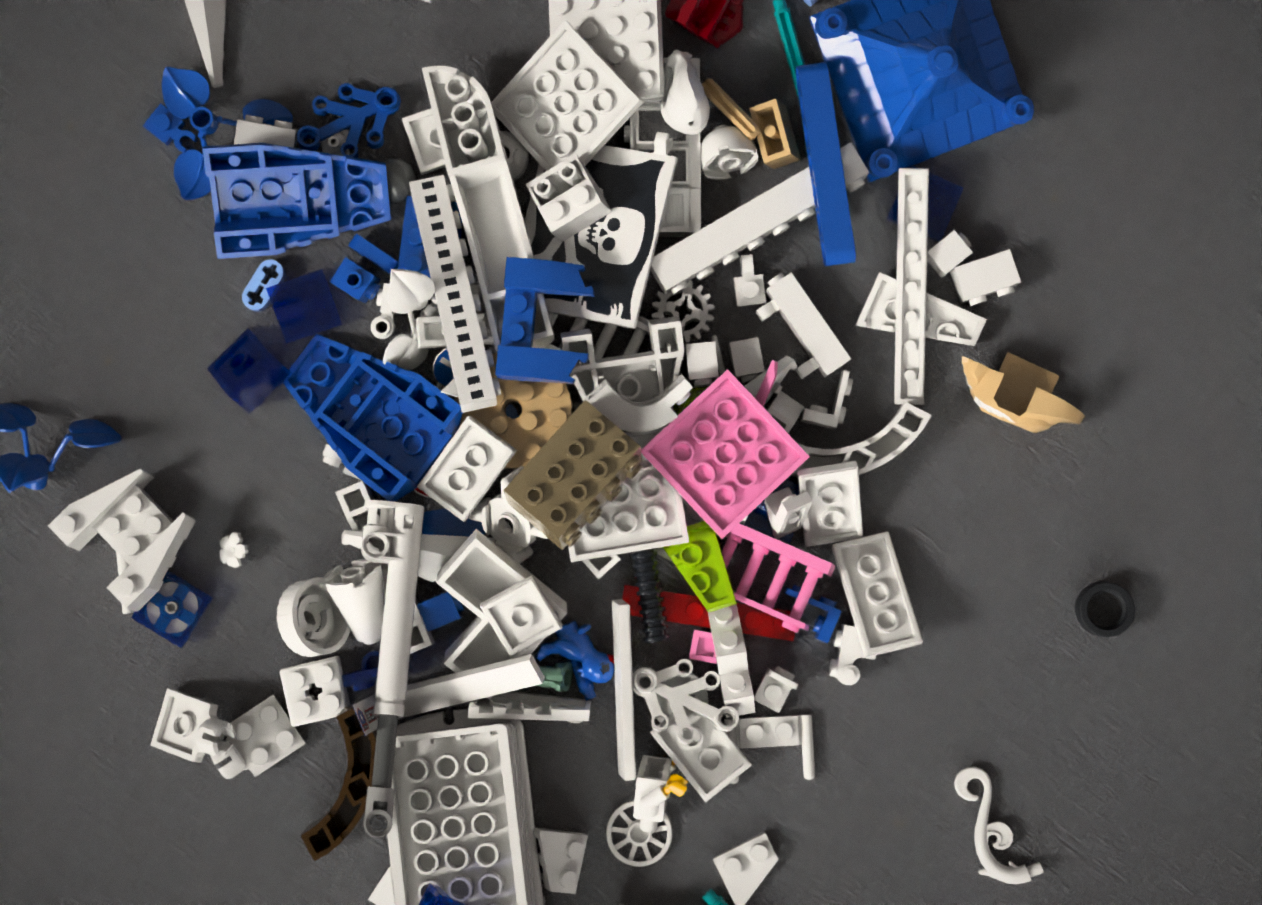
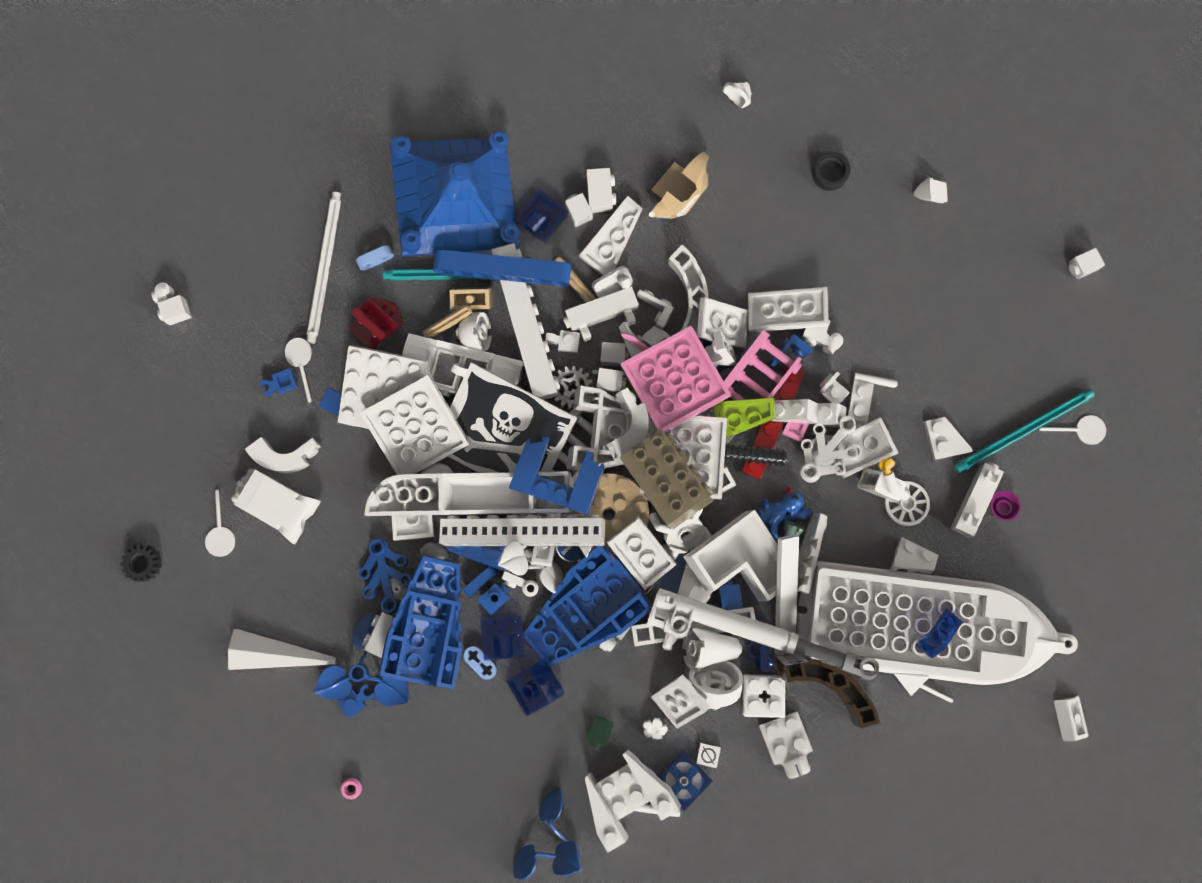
camera: 75 degrees left, 5 degrees down
(43, 152) = (345, 791): none -> bright pink plate
(191, 728) = (769, 787): white plate -> none
(209, 474) = (599, 732): none -> clear green brick
(215, 633) = (708, 755): none -> white tile
(275, 575) = (680, 701): none -> white plate
(521, 615) = (749, 540): white plate -> none
(568, 198) = (478, 440): white slope -> none
(623, 689) = (812, 487): white tile -> none
(686, 103) = (434, 345): white piece -> none
(839, 277) = (579, 286): none -> tan axle
(852, 330) = (612, 282): none -> white piece
(911, 285) = (594, 237): white tile -> none
(1009, 874) = (954, 282): white plant -> none
(1113, 766) = (932, 191): none -> white tile
(1189, 444) = (739, 93): none -> white piece

